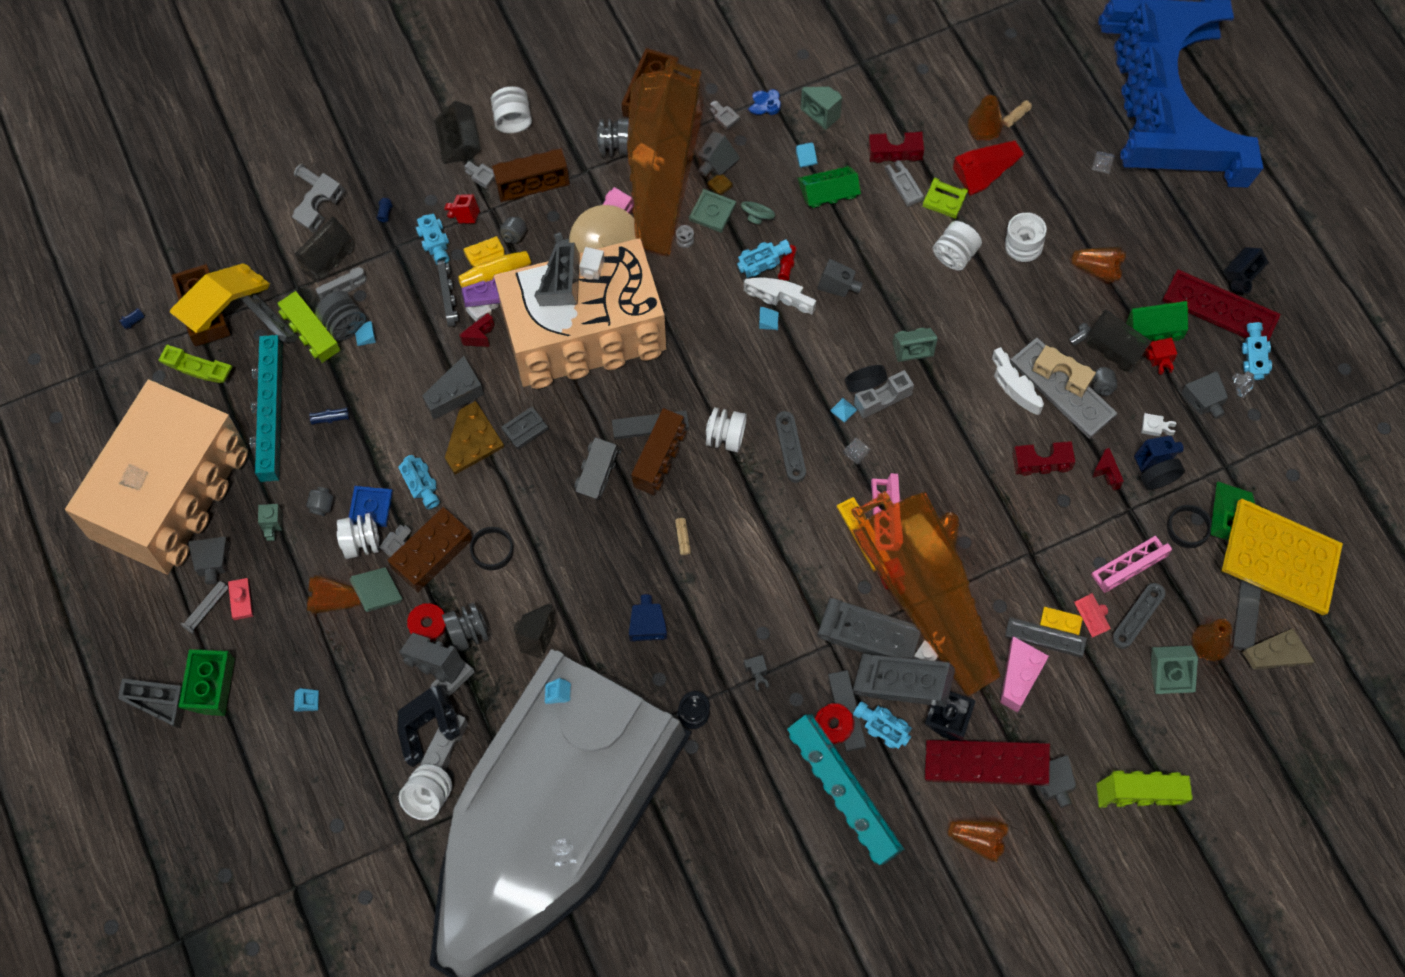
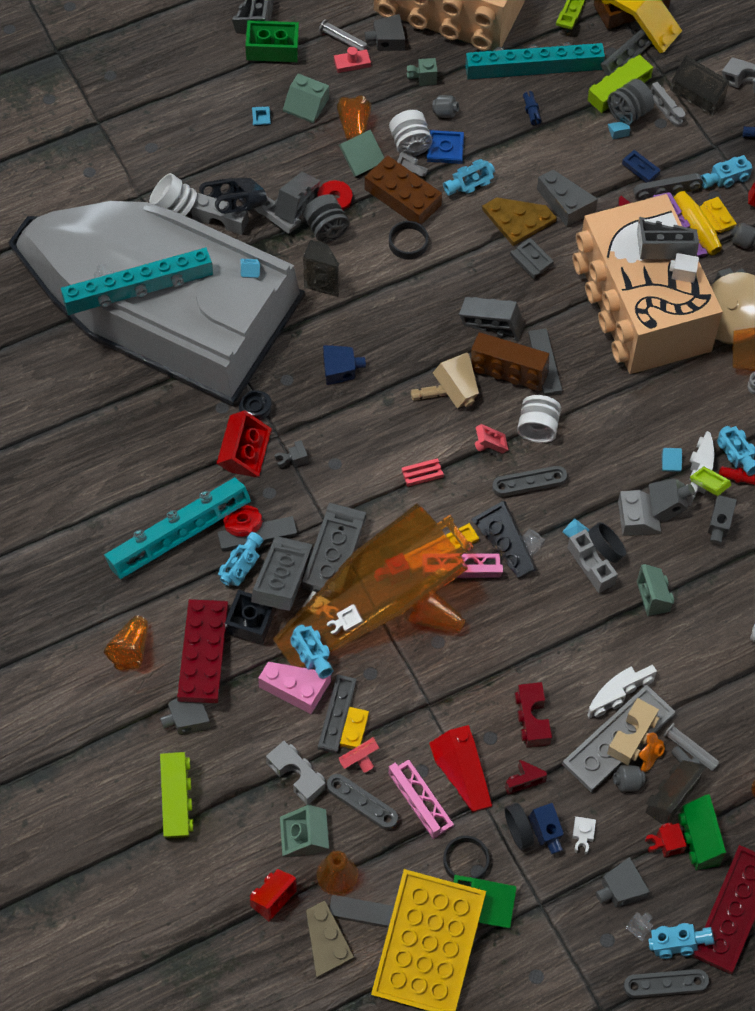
camera: 85 degrees right, 5 degrees down
(291, 648) = (306, 98): none -> sand green slope
(417, 316) = (641, 166): none -> dark blue plate
(577, 811) = (137, 281): none -> teal piece
(674, 504) = (458, 380): none -> tan slope
(743, 722) = (244, 444): none -> red slope
(746, 478) = (490, 439): none -> coral tile
(773, 532) = (421, 469): none -> coral tile
(806, 280) = (710, 481): none -> lime tile
(816, 320) = (669, 498): none -> dark grey torso
(828, 353) = (637, 514): none -> light grey slope
(850, 473) = (503, 533): none -> black wing
(955, 617) = (348, 619): none -> white plate
(991, 652) = (311, 650): none -> medium azure brick
(1068, 329) = (691, 747): none -> light grey axle
(1078, 358) = (653, 750): none -> orange plate
(1093, 525) = (459, 760): none -> red wedge
(1125, 663) = (285, 759): none -> light grey arch
(1242, 696) = (273, 894): none -> red slope
(1293, 368) = (666, 983): none -> dark grey plate

